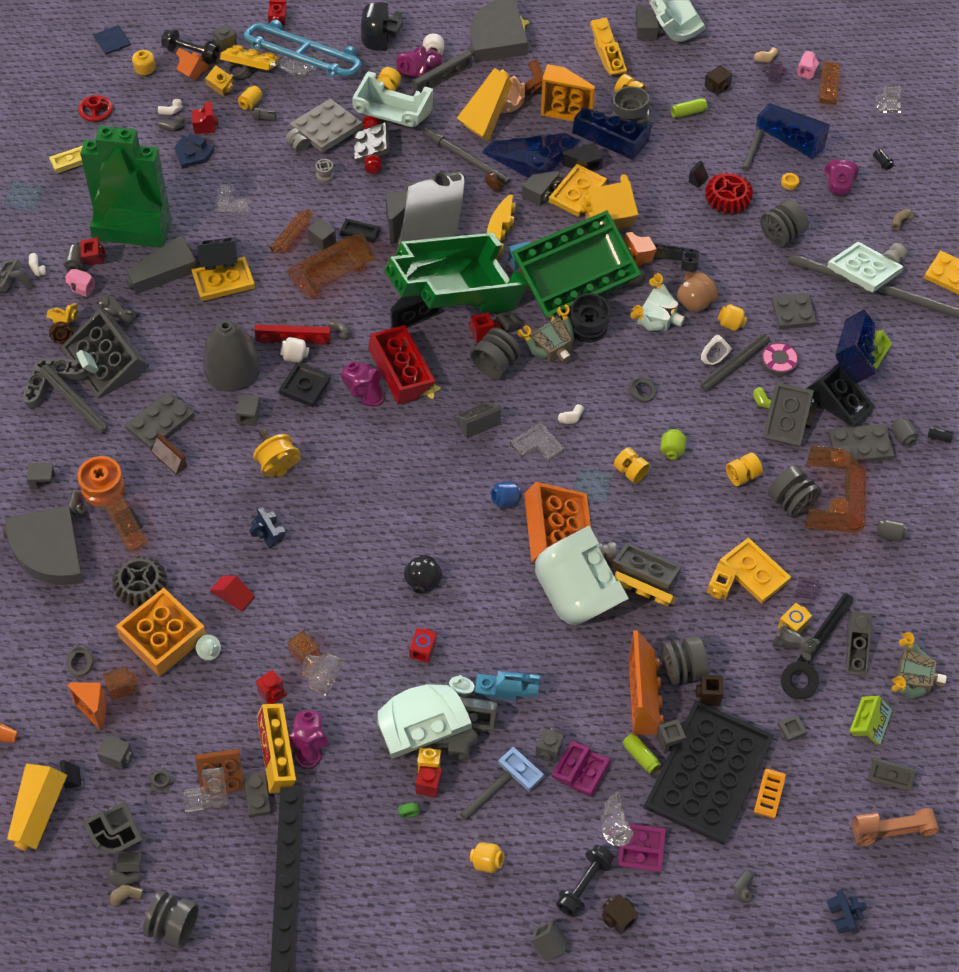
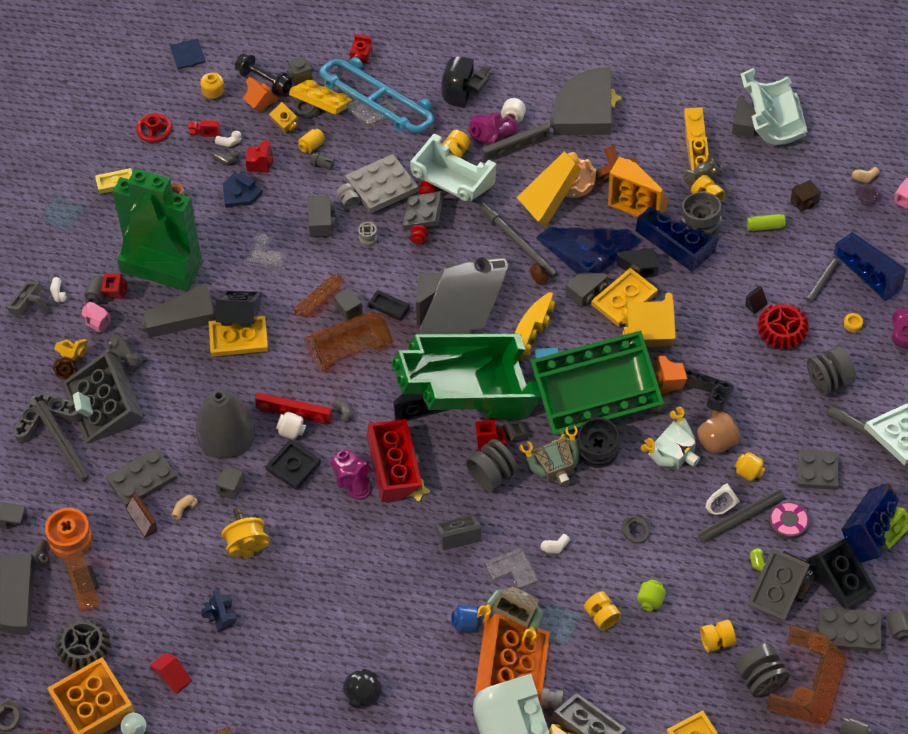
camera: 15 degrees right, 0 degrees up
(147, 101) = (205, 128): none -> red plate
(204, 439) = (186, 501): none -> tan arm
(276, 160) = (319, 215): none -> dark grey brick
(554, 474) = (516, 606): none -> torso
(626, 67) = (710, 167): none -> dark grey animal

